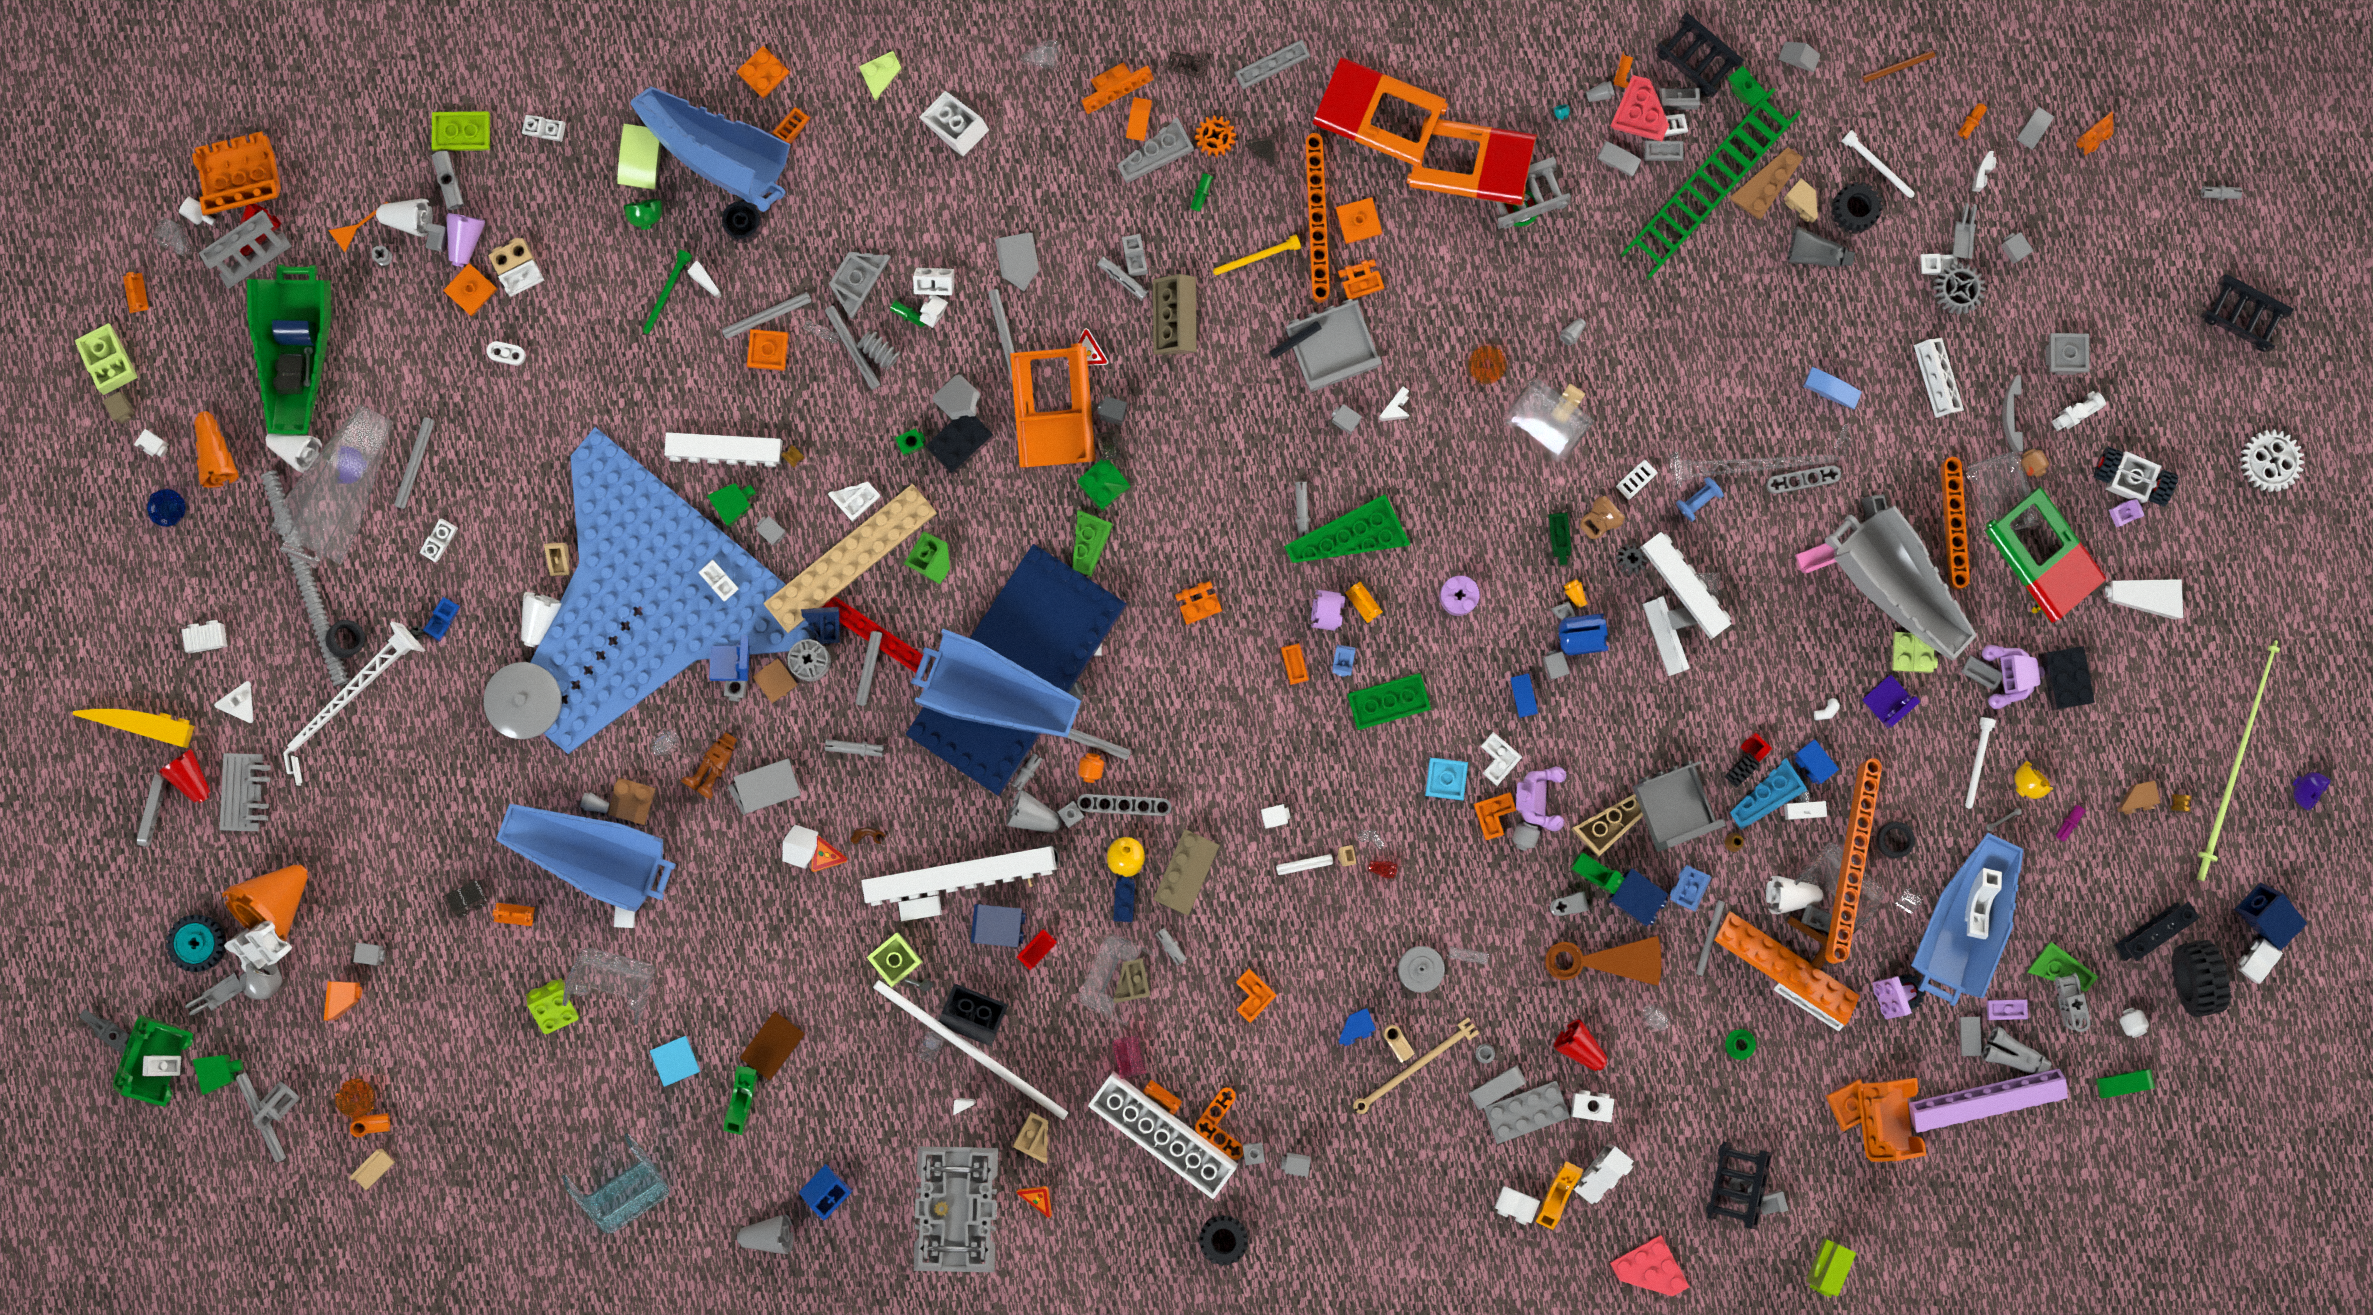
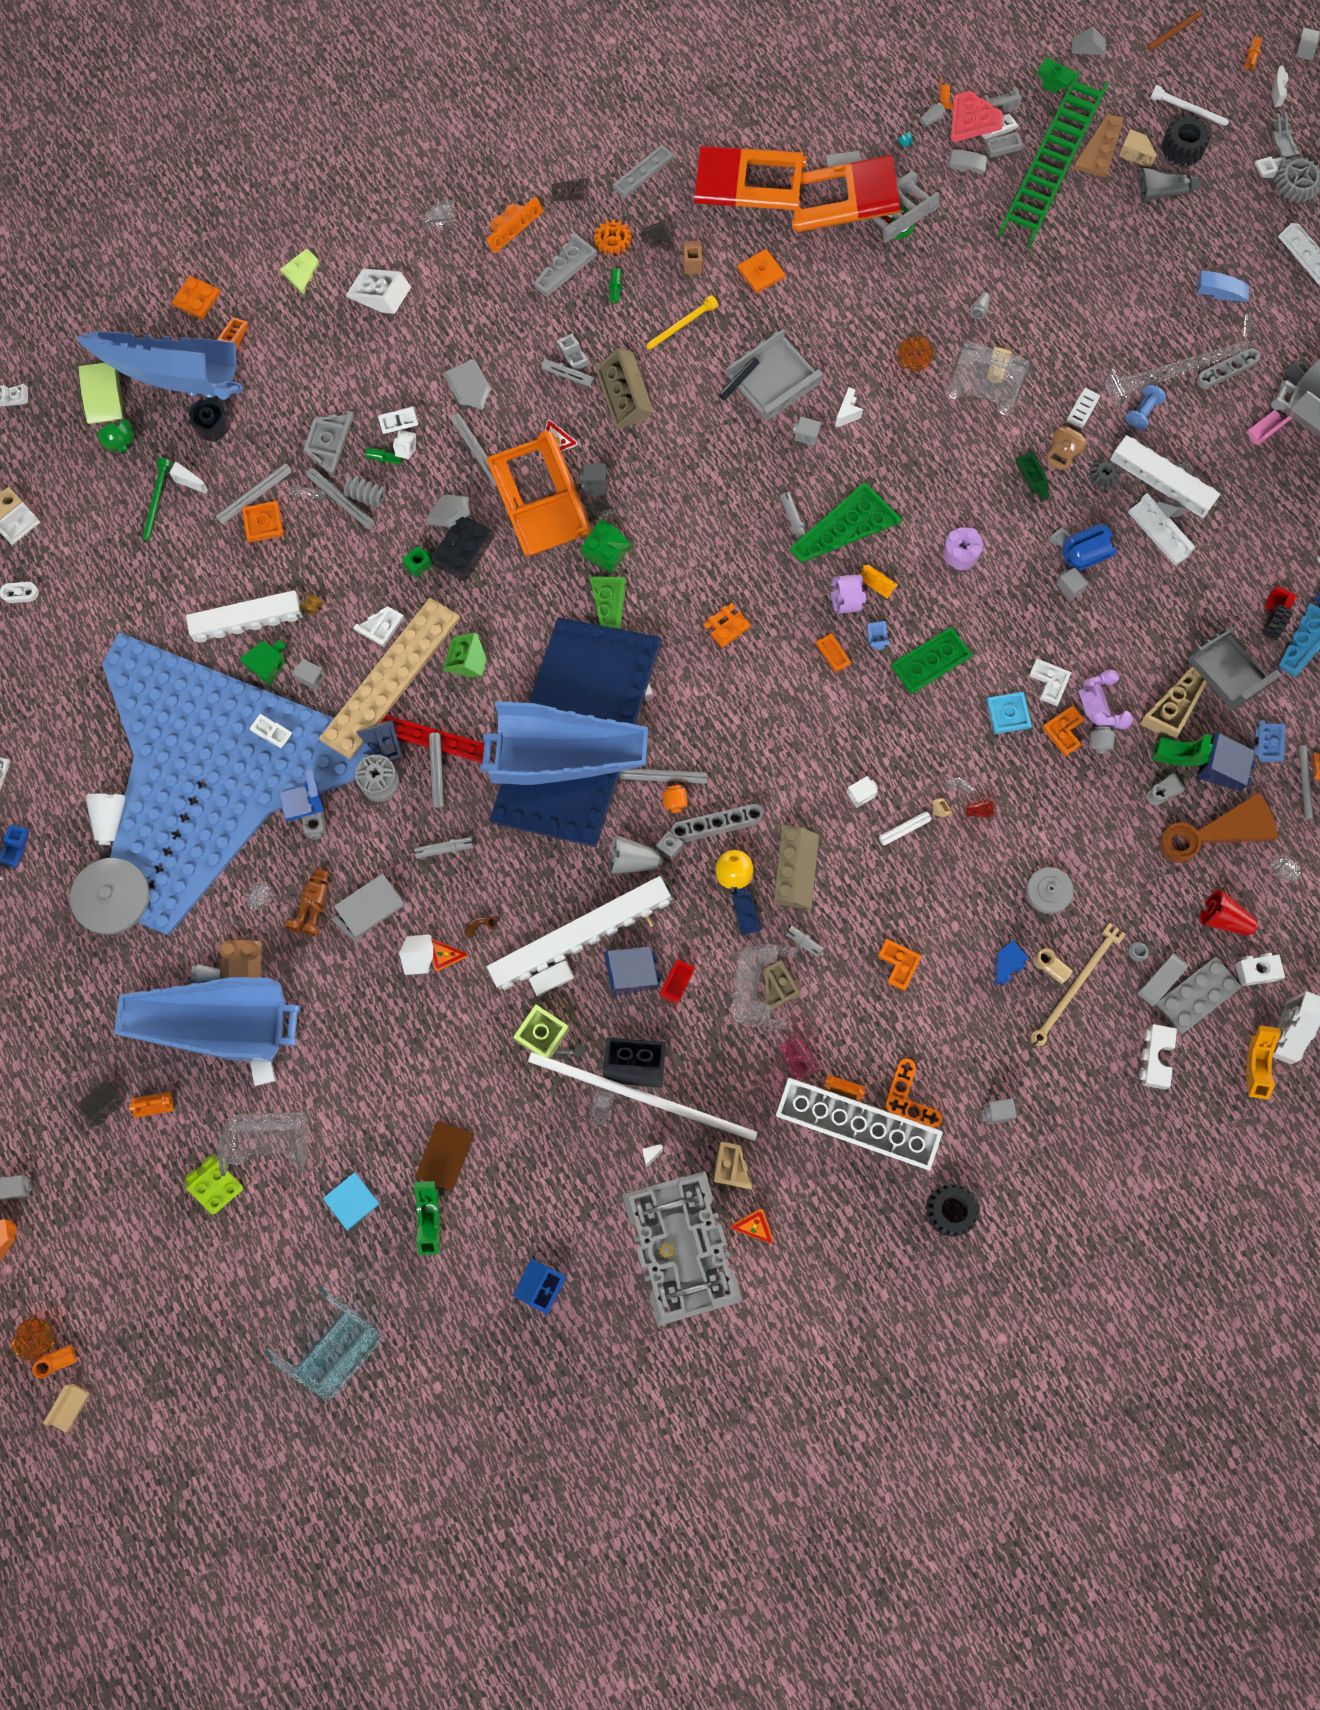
camera: 15 degrees left, 10 degrees down
(557, 558) = (111, 757): tan slope -> none
(768, 1235) = (494, 1349): light grey cone -> none
(775, 680) = (350, 809): medium nougat piece -> none
(1027, 772) = (615, 820): light grey pin -> none
(1139, 119) = (541, 242): orange slope -> none
(1253, 1153) = (952, 1115): light grey brick -> none
(1291, 183) = (692, 257): none -> medium nougat slope
(1320, 209) = (721, 268): orange beam -> none
(1362, 285) = (783, 319): orange plate -> none
(1468, 955) = (1101, 863): clear pin -> none
(1470, 1143) = (1153, 1072): none -> white arch
(1488, 117) = (842, 158): none -> light grey tile
(1517, 1205) = (1224, 1086): white brick -> none
(1524, 695) = (1053, 618): blue slope -> none
(1575, 593) = (1066, 518): light orange cone -> none
(1703, 36) = (1008, 50): black fence -> none
(1729, 842) = (1294, 689): pearl gold cone -> none

